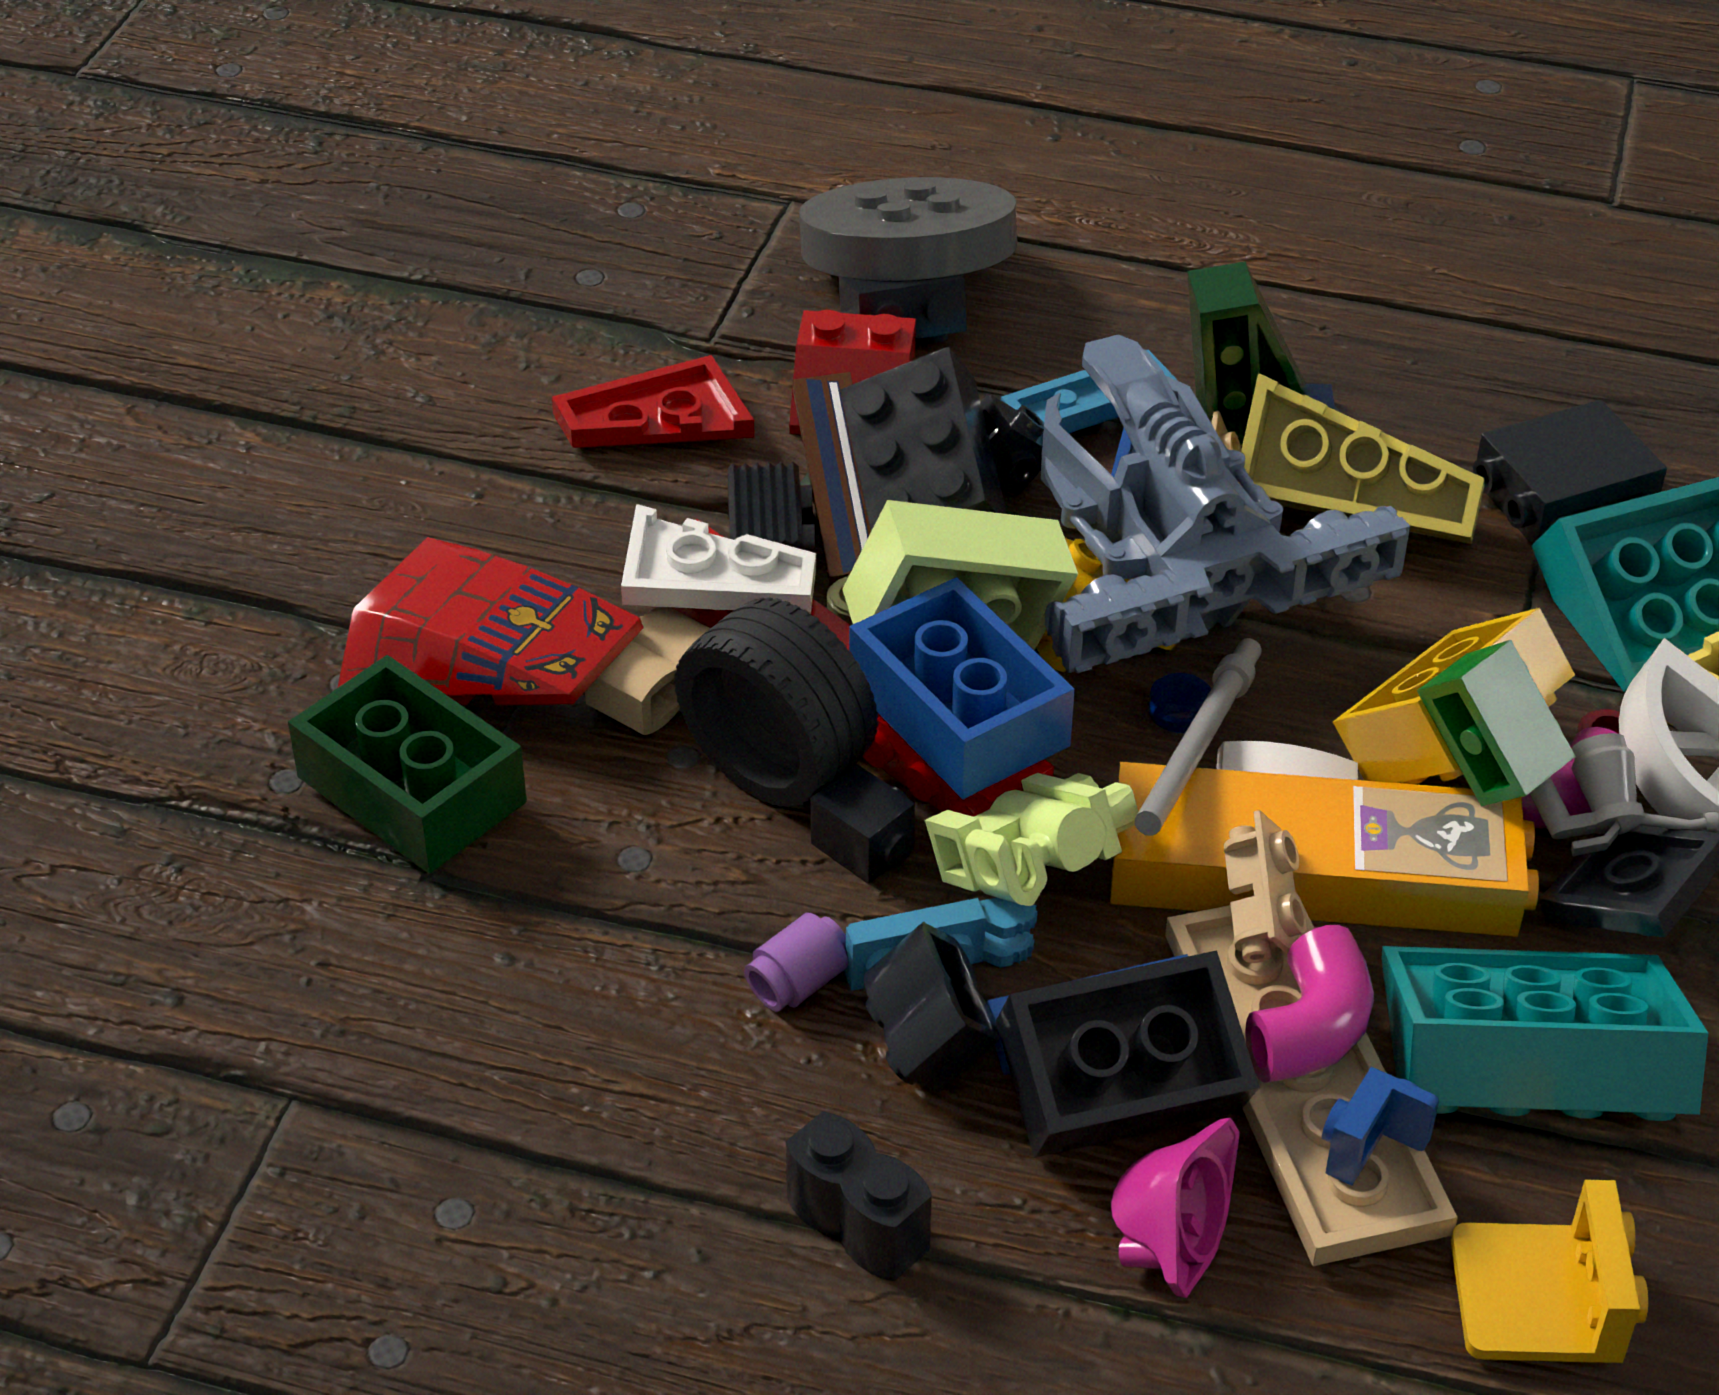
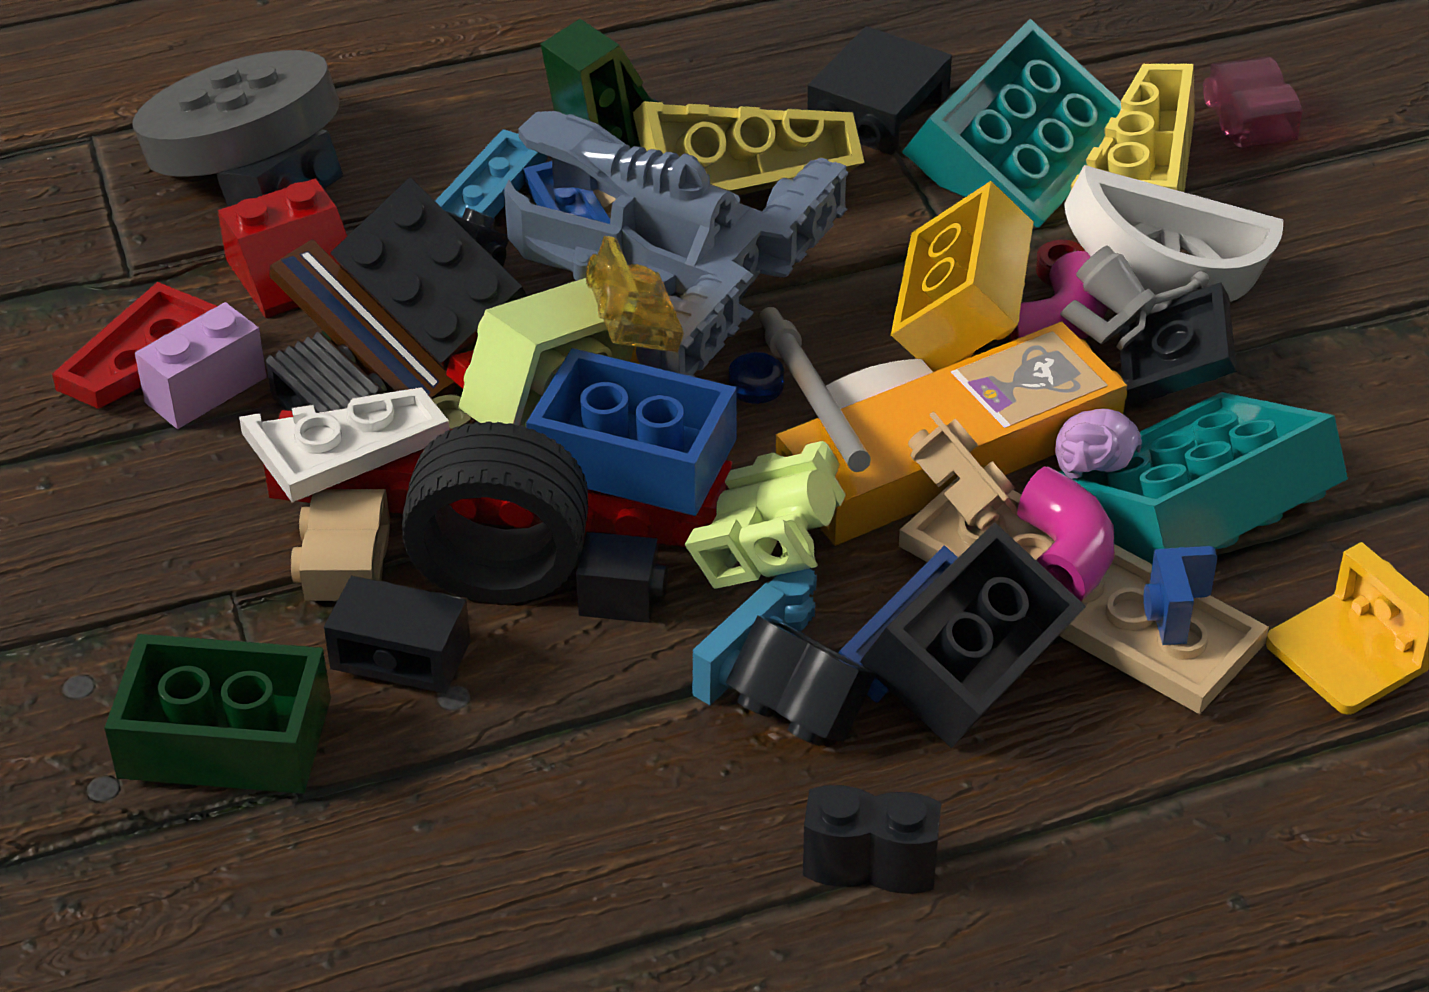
camera: 35 degrees left, 0 degrees up
(487, 628) = (185, 578): red wedge -> none
(618, 772) = (397, 634): none -> black brick
(678, 446) = (201, 365): none -> lavender brick
(797, 962) = (664, 702): medium lavender brick -> none
(1052, 561) = (632, 301): none -> clear yellow bracket
(1177, 1205) = (1081, 724): dark pink hat -> none
(1445, 933) = (1097, 442): none -> lavender hair
(1496, 723) = (1031, 274): brick -> none

